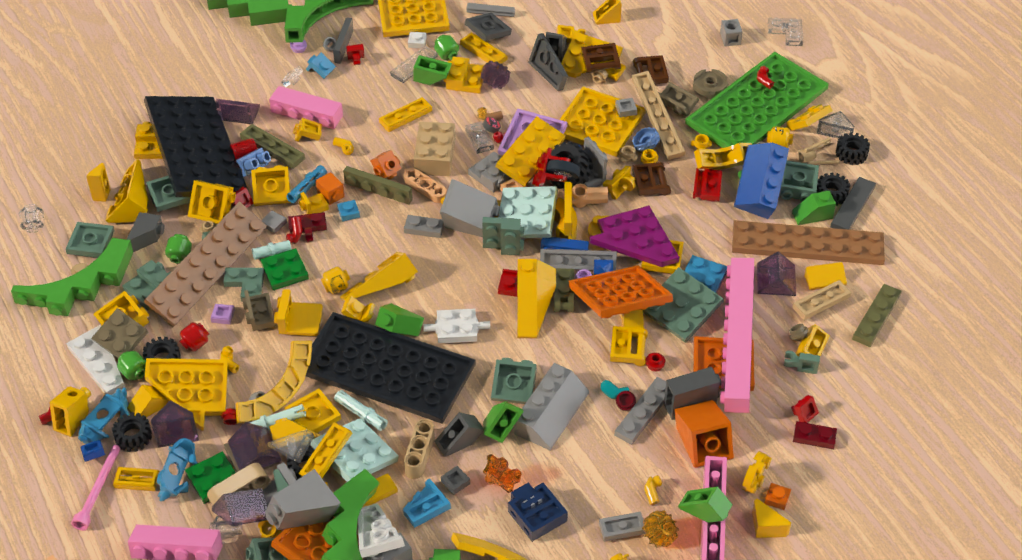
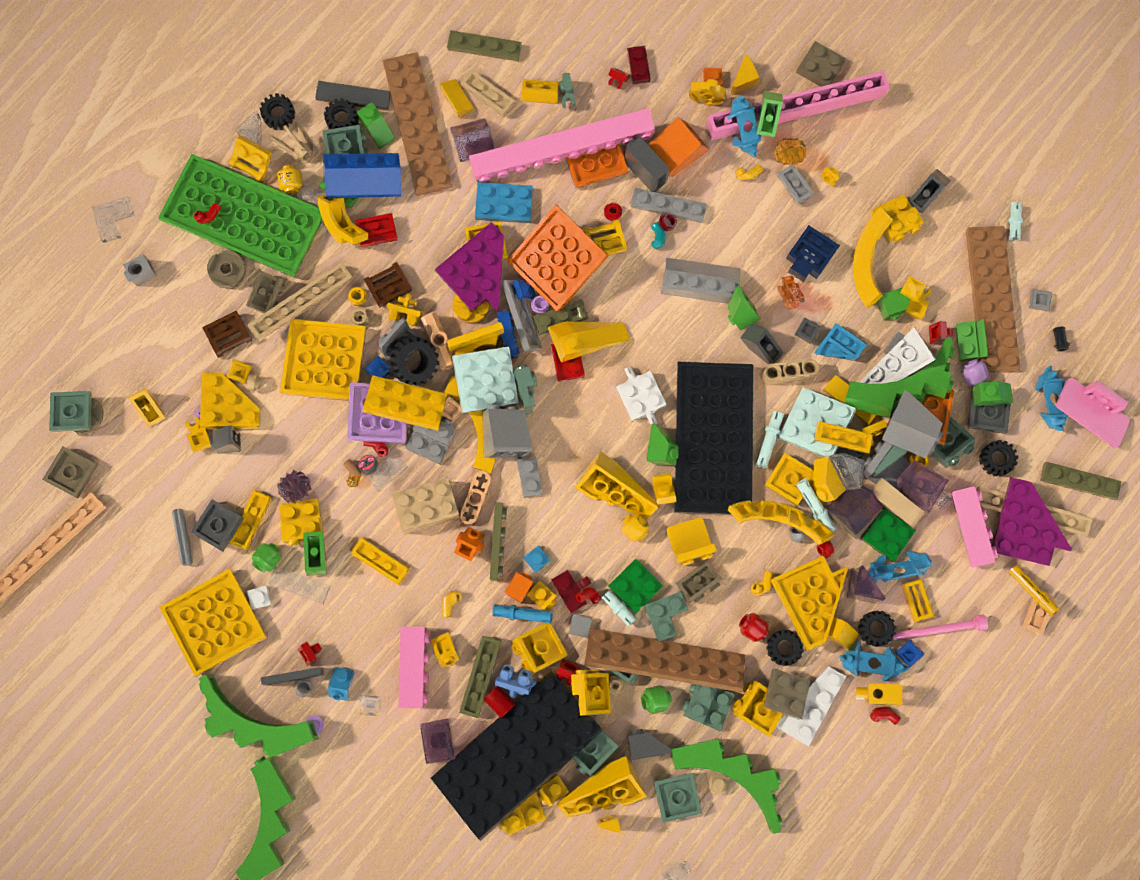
camera: 115 degrees left, 30 degrees up
(132, 365) = (811, 666): bright green head -> none
(152, 163) = (552, 791): none -> yellow bracket
(222, 314) = (711, 618): lavender tile -> none
(513, 380) = (687, 319): sand green plate -> none
(547, 63) = (259, 438): dark grey wing -> none
(557, 169) = (440, 367): plate -> none
(600, 53) = (230, 385): reddish brown plate -> none
(626, 107) = (303, 334): light grey plate -> none
(646, 139) = (337, 304): medium blue hair -> none
(690, 306) = (537, 198): sand green plate -> none
(701, 142) = (313, 253): yellow plate -> none
(723, 479) = (744, 111): none -> dark azure piece
(798, 332) = (532, 107): dark tan plate -> none

